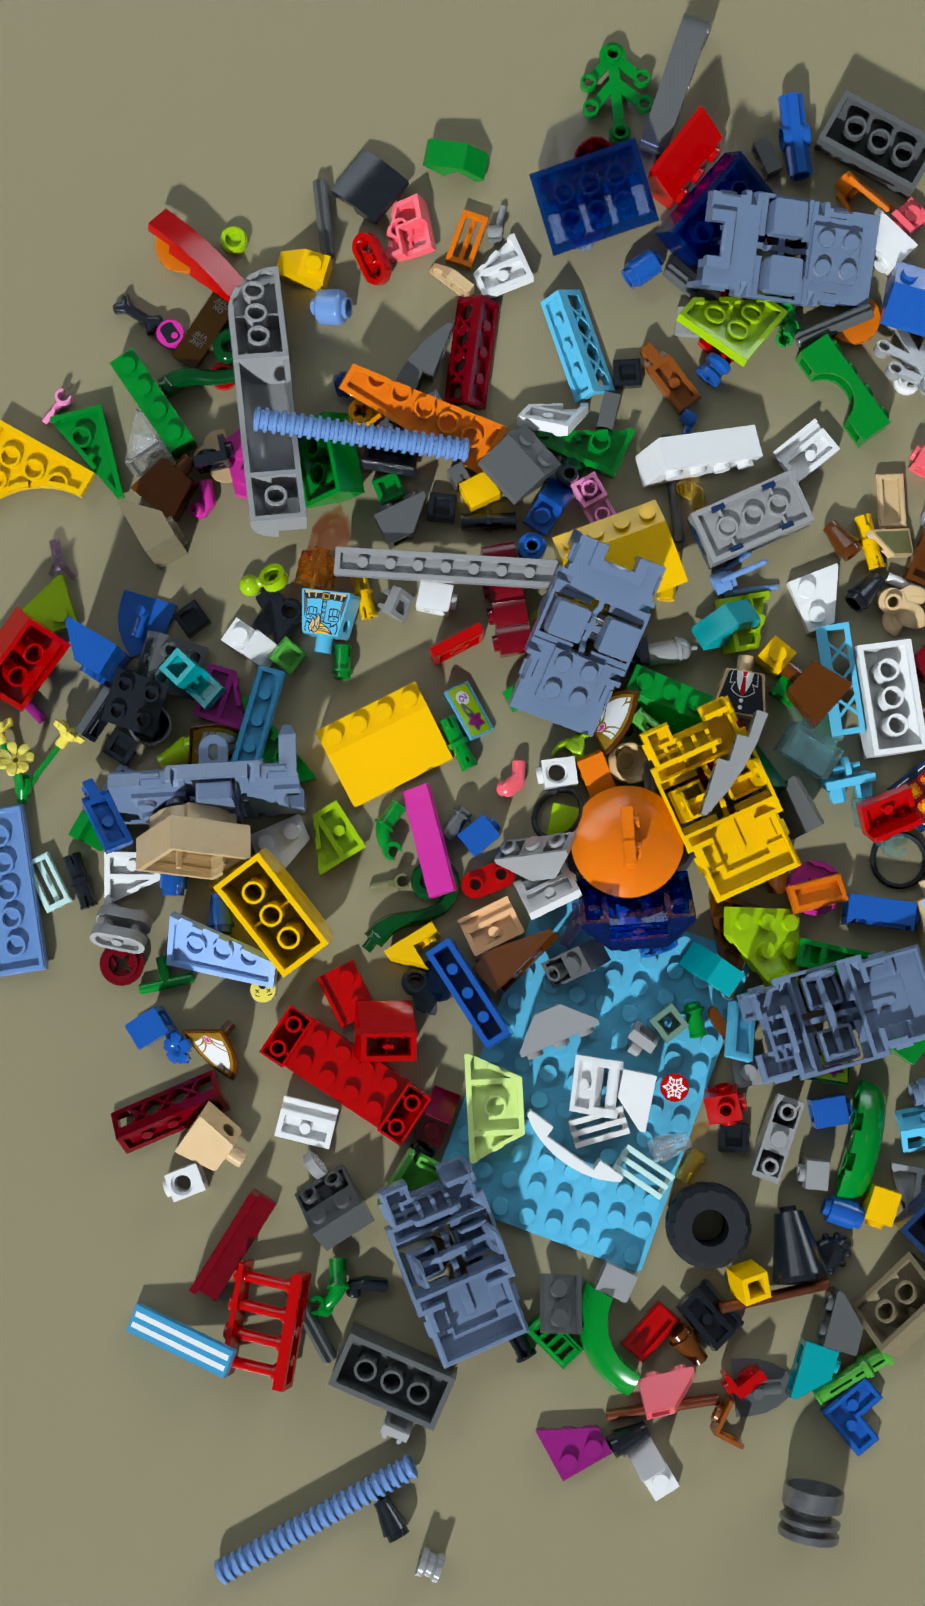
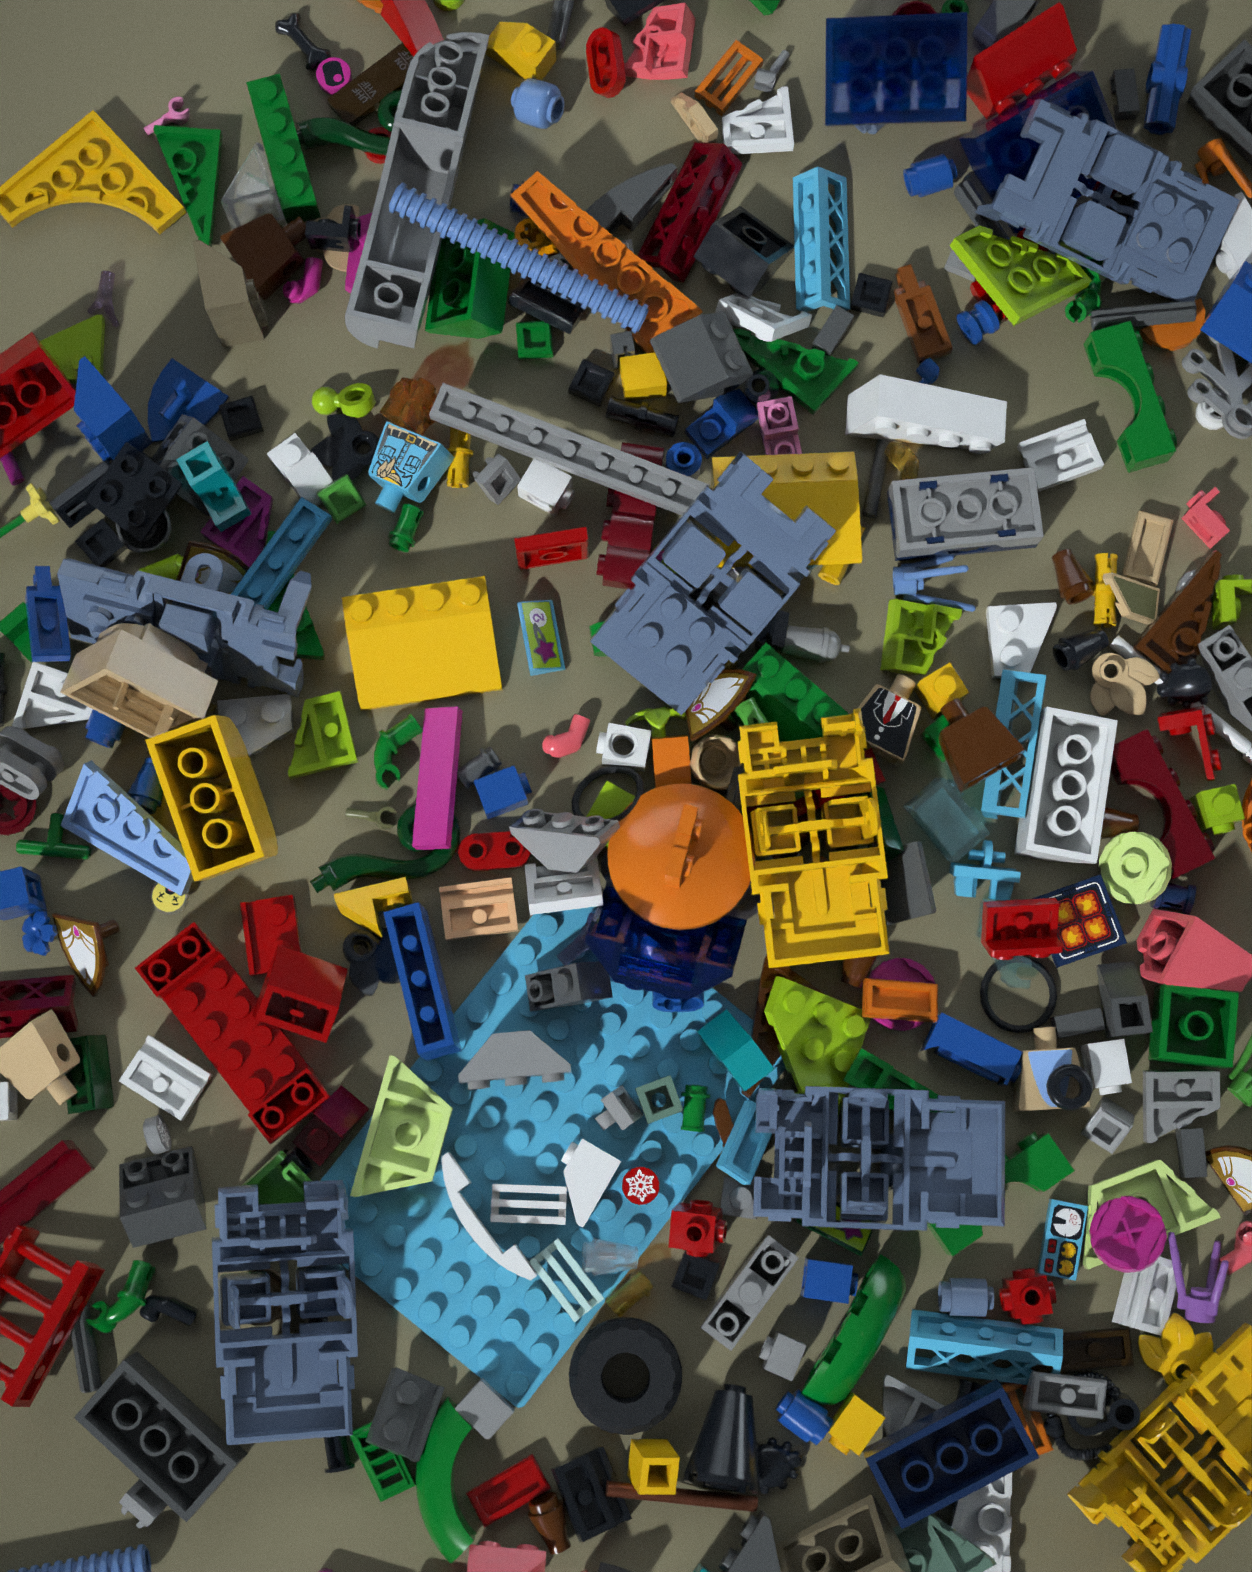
camera: 15 degrees right, 5 degrees down
(253, 1137) = (91, 1075): none -> dark green slope
(400, 521) = (537, 380): dark grey slope -> none
(458, 743) = (514, 671): green pin -> none
(506, 963) = (487, 958): reddish brown slope -> none
(522, 371) = (743, 251): none -> black slope
(588, 1086) = (533, 1145): white plate -> none
(719, 626) = (881, 632): teal slope -> none
(726, 772) = (831, 803): light grey slope -> none

